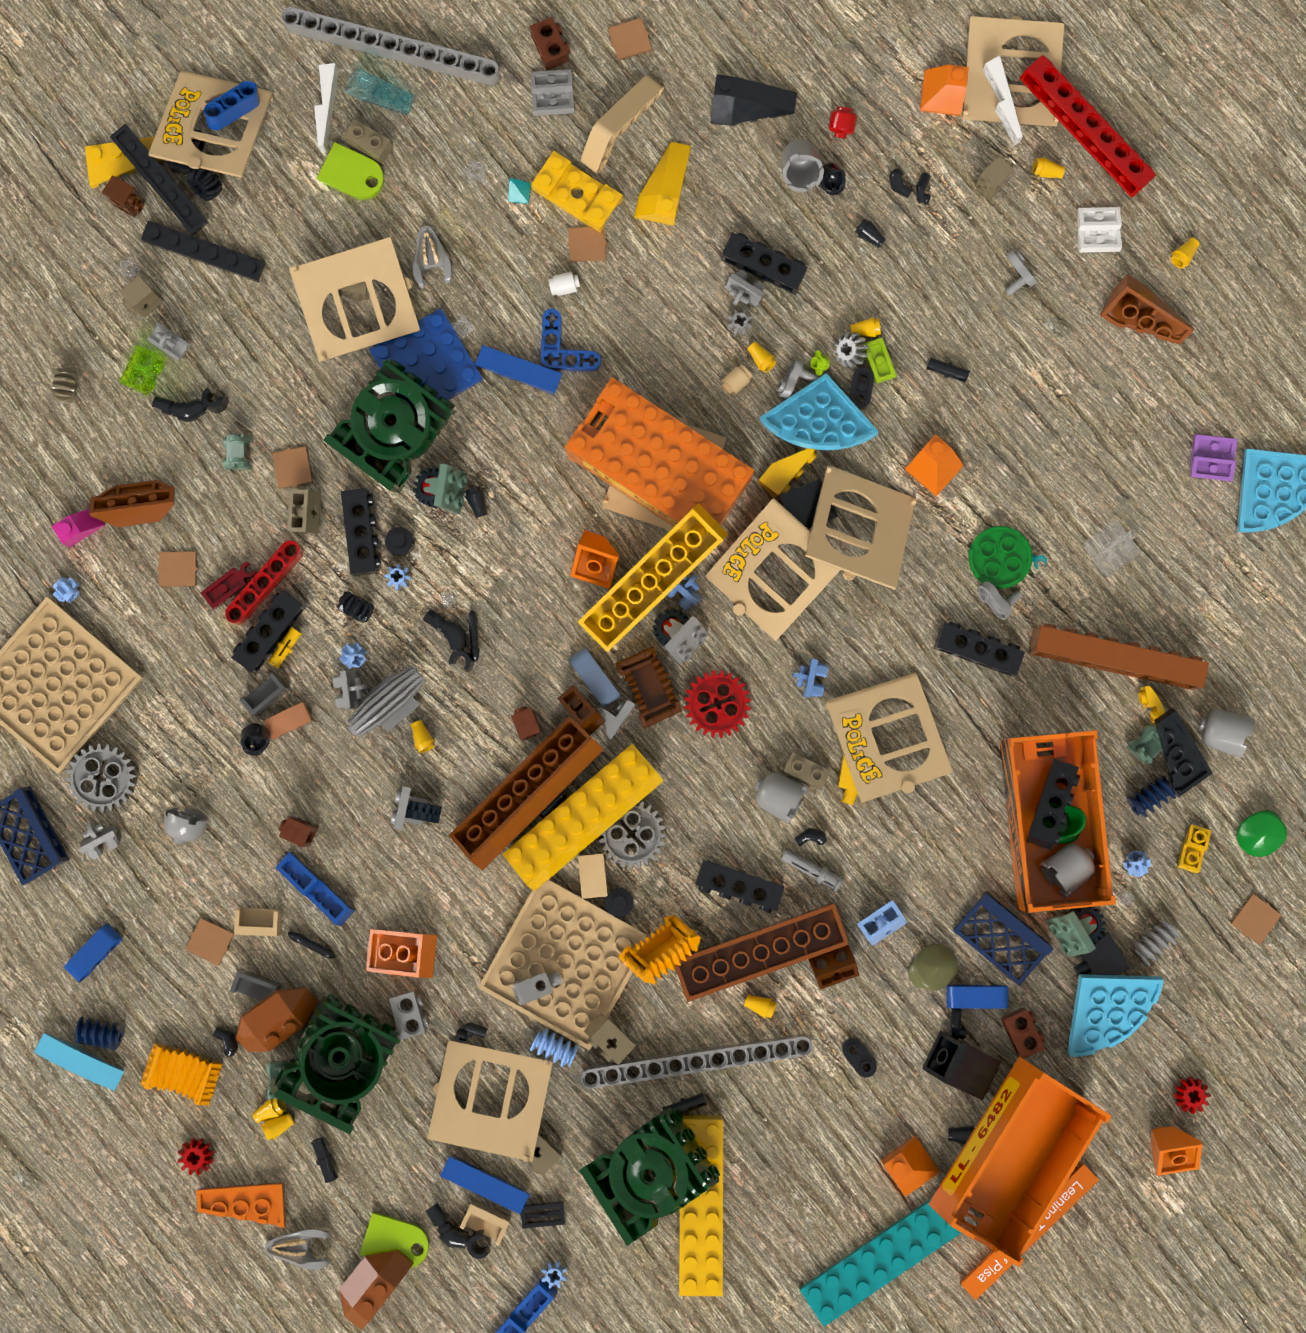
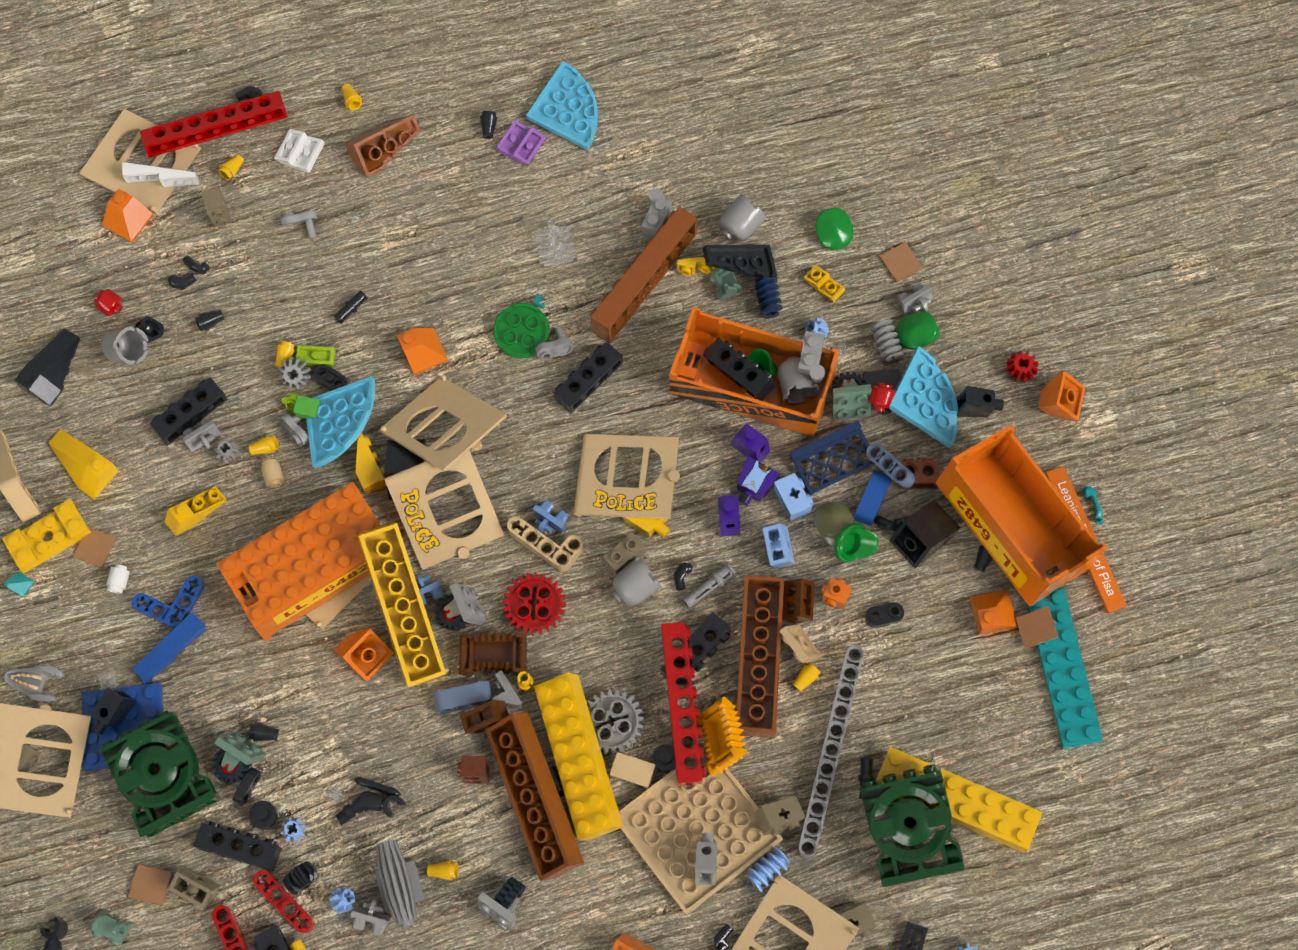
camera: 65 degrees left, 15 degrees down
(325, 598) = (283, 902): none -> red beam
(419, 512) = (246, 786): none -> black beam
(433, 348) = (112, 709): none -> black torso
(613, 941) = (670, 633): none -> red brick
(633, 738) = (524, 683): none -> yellow pin
(665, 322) = (192, 511): none -> yellow slope
(784, 682) = (542, 541): none -> tan beam
(789, 987) = (800, 643): none -> tan plate
(818, 380) = (306, 407): none -> bright green slope
(860, 1009) = (836, 593): none -> orange brick
(893, 858) = (729, 514): none -> dark purple torso
(911, 1218) = (1037, 627): none -> medium nougat piece
(919, 1000) = (855, 543): none -> green piece
(931, 918) = (793, 507): none -> light blue brick
(942, 869) = (755, 481): none -> torso
(980, 848) = (750, 442): none -> dark purple torso
(1017, 993) = (883, 461): none -> sand blue beam
(1082, 1216) = (1089, 491): none -> teal piece
(1088, 964) = (881, 396): none -> red head
(1095, 878) = (811, 356): none -> light grey hinge
(1129, 1065) = (978, 402): none -> black torso
(1142, 142) = (249, 92): none -> black arm
(1183, 968) = (917, 330): none -> green piece
(1193, 640) = (657, 214): none -> light grey hinge
(1217, 956) = (917, 301): none -> light grey hips
(1221, 412) = (488, 123): none -> black cone

